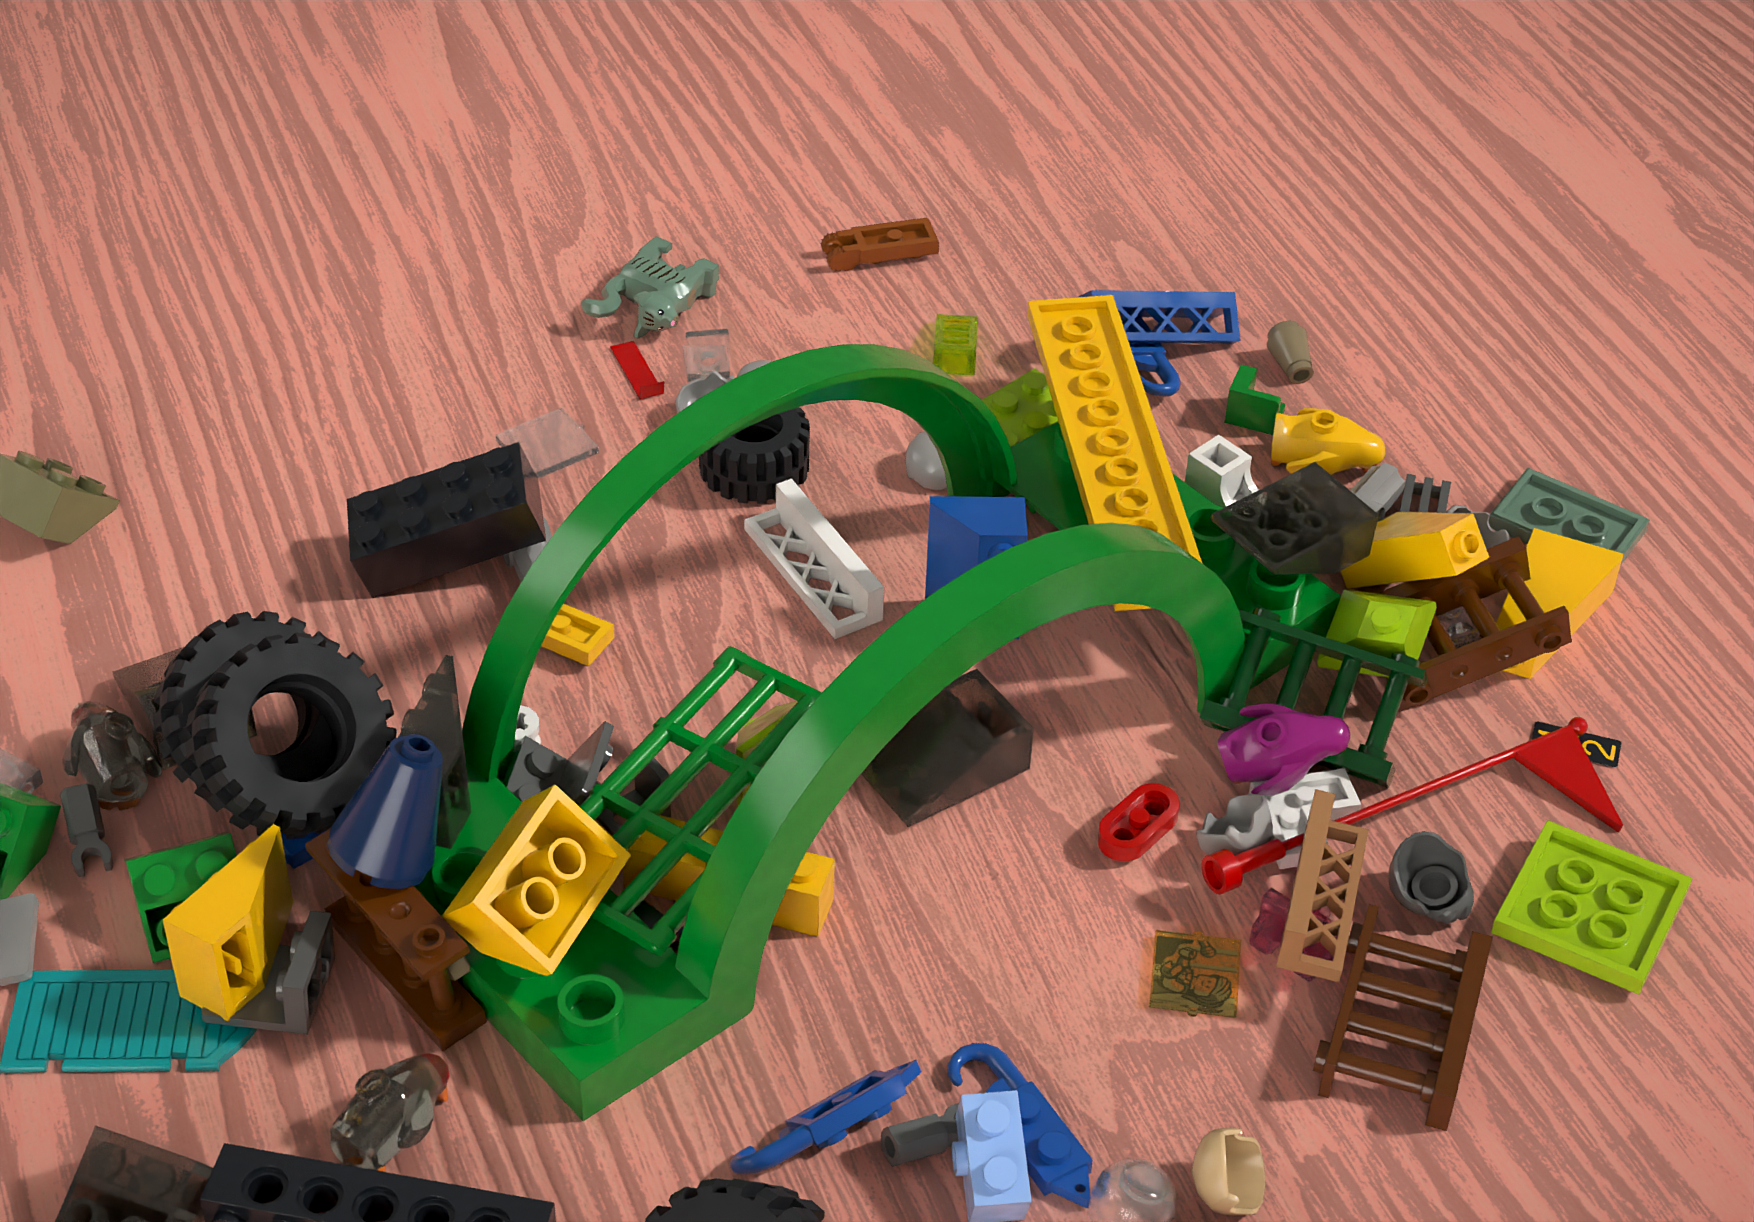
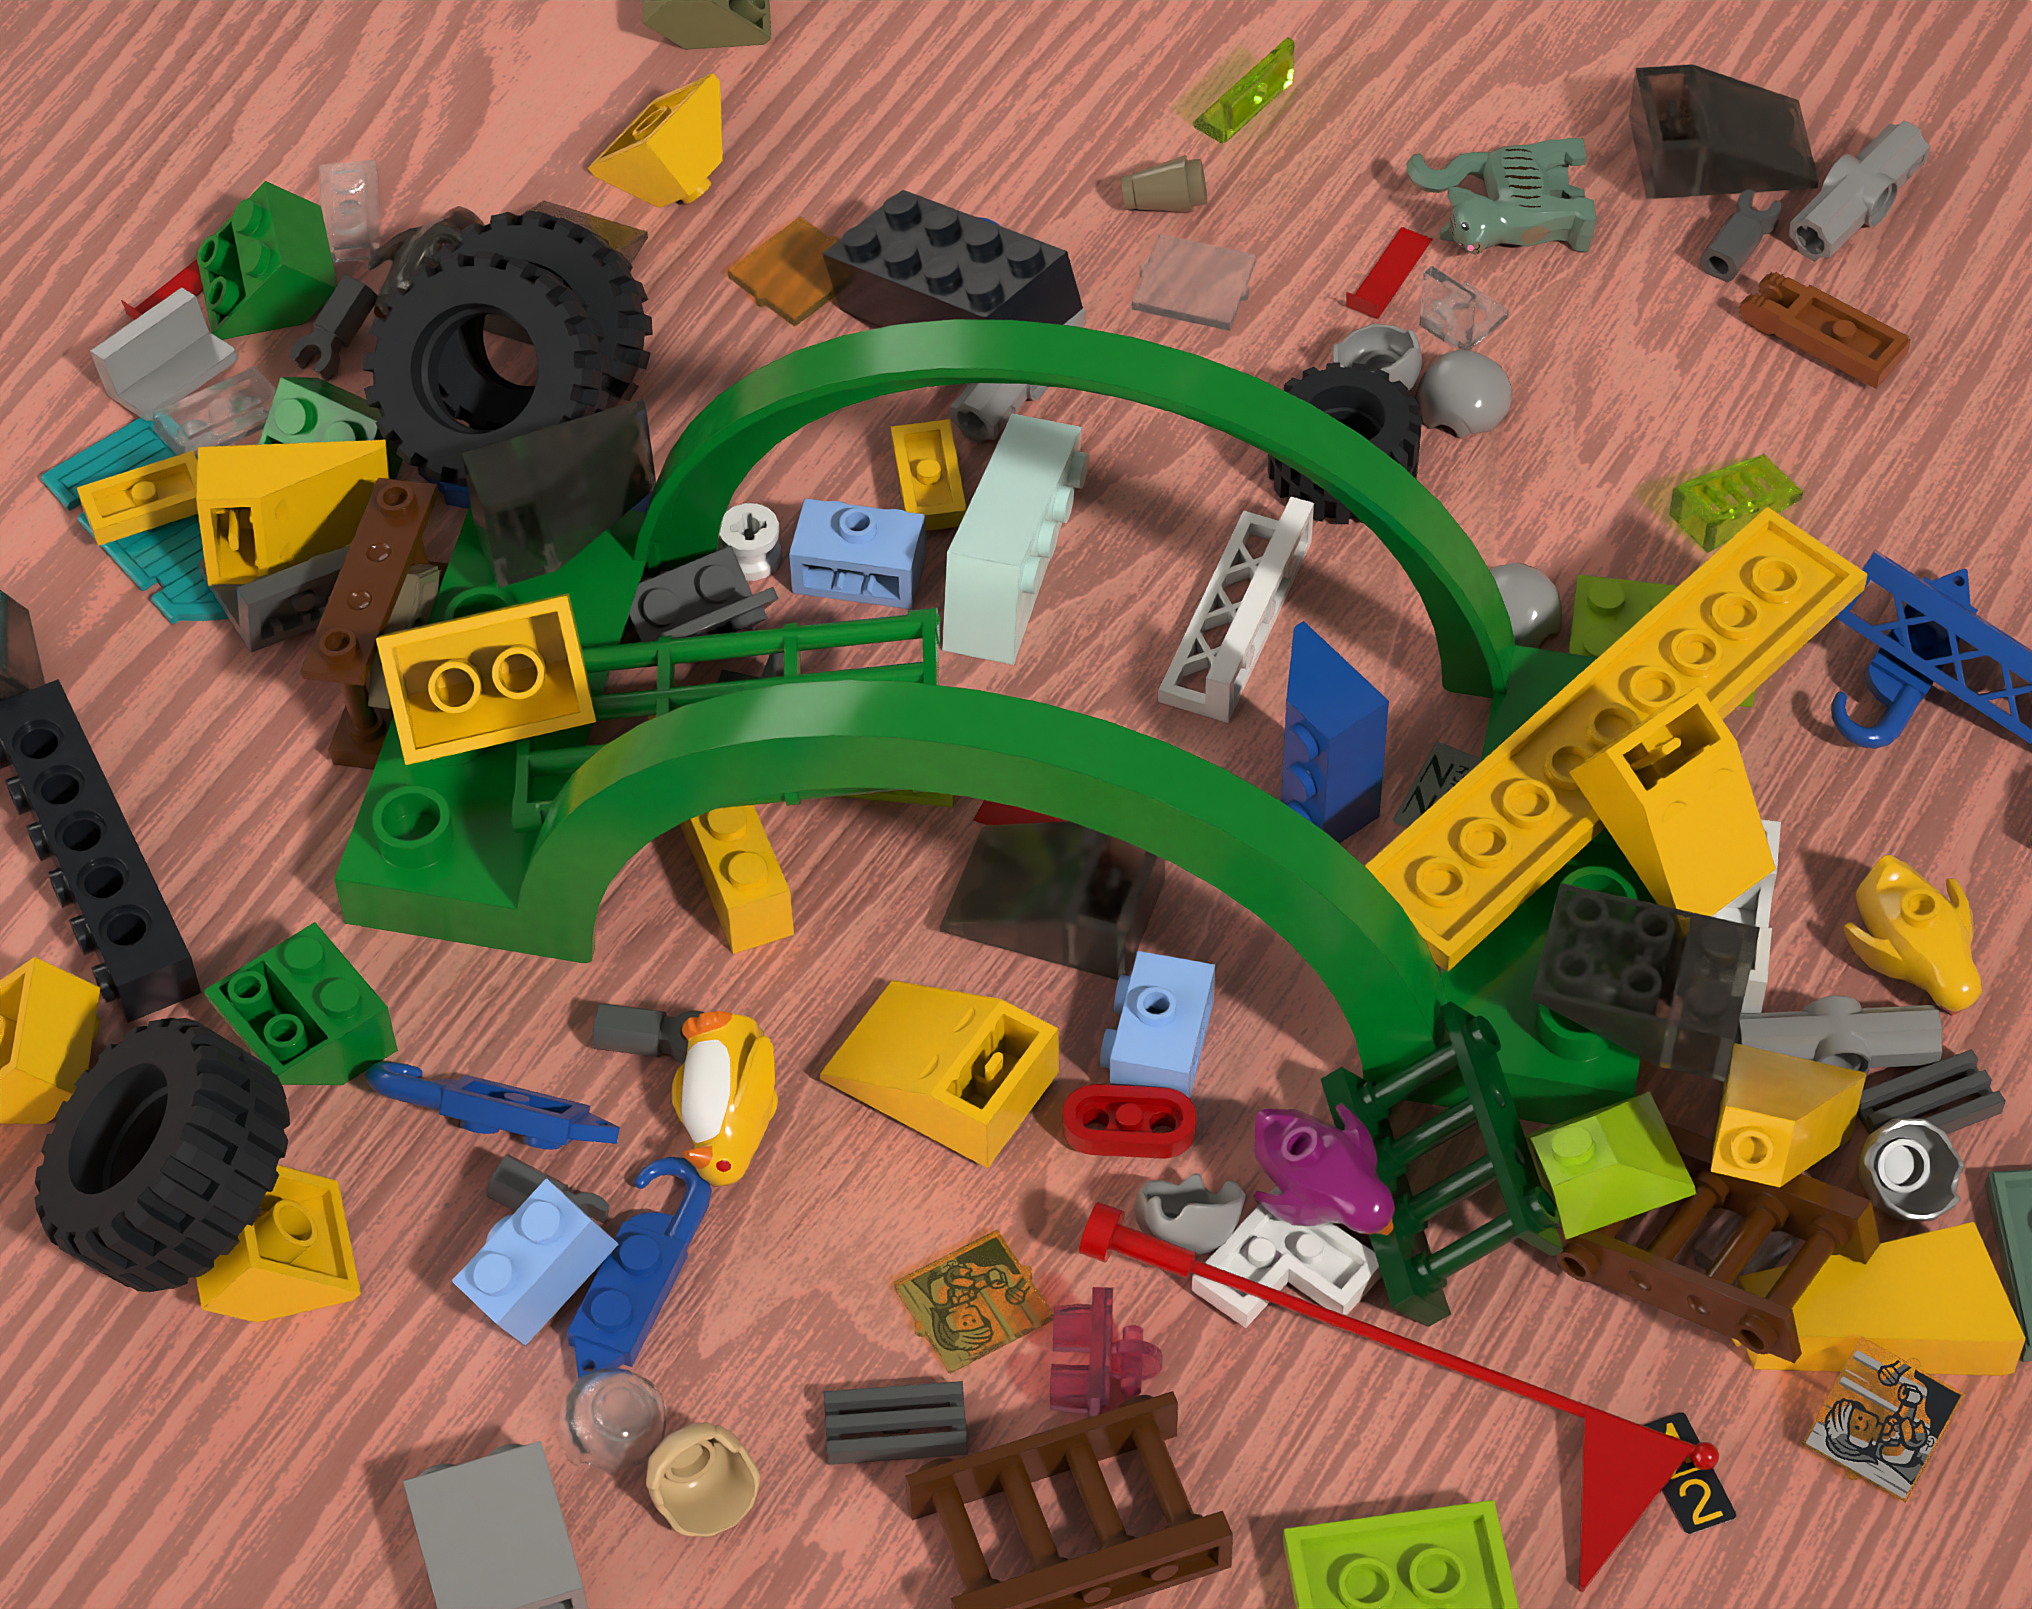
camera: 55 degrees right, 10 degrees up
(83, 932) = (217, 414): none -> clear plate
(107, 1012) = (141, 498): none -> yellow plate
(150, 586) = (668, 146): none -> yellow slope
(321, 596) = (788, 272): none -> clear yellow piece
(389, 1111) = (206, 770): clear smoke animal -> none
(392, 816) = (417, 515): dark blue cone -> none
(439, 339) = (1249, 94): none -> clear neon green slope
(471, 406) = (1166, 186): none -> dark tan cone
(587, 691) = (858, 553): none -> light blue brick
(653, 1157) = (306, 1012): none -> green slope
(659, 612) = (1010, 537): none -> light aqua wedge
(704, 201) = (1716, 135): none -> clear smoke slope
(781, 235) = (1739, 237): none -> dark grey bar
(806, 178) = (1859, 190): none -> light grey piece
(847, 1007) = (640, 1031): none -> dark grey bar
(946, 989) = (724, 1093): none -> animal
(1023, 873) = (948, 1065): none -> yellow slope
(1087, 765) = (1161, 1023): none -> light blue brick
(1194, 437) = (1680, 806): none -> yellow slope
(1250, 407) = (1929, 828): green panel -> none
(1273, 1031) = (893, 1412): none -> dark grey tile
(1308, 883) = (1129, 1307): medium nougat fence -> none
(1431, 878) = (1283, 1431): dark grey hair -> none
(1619, 640) = (1883, 1419): none -> piece

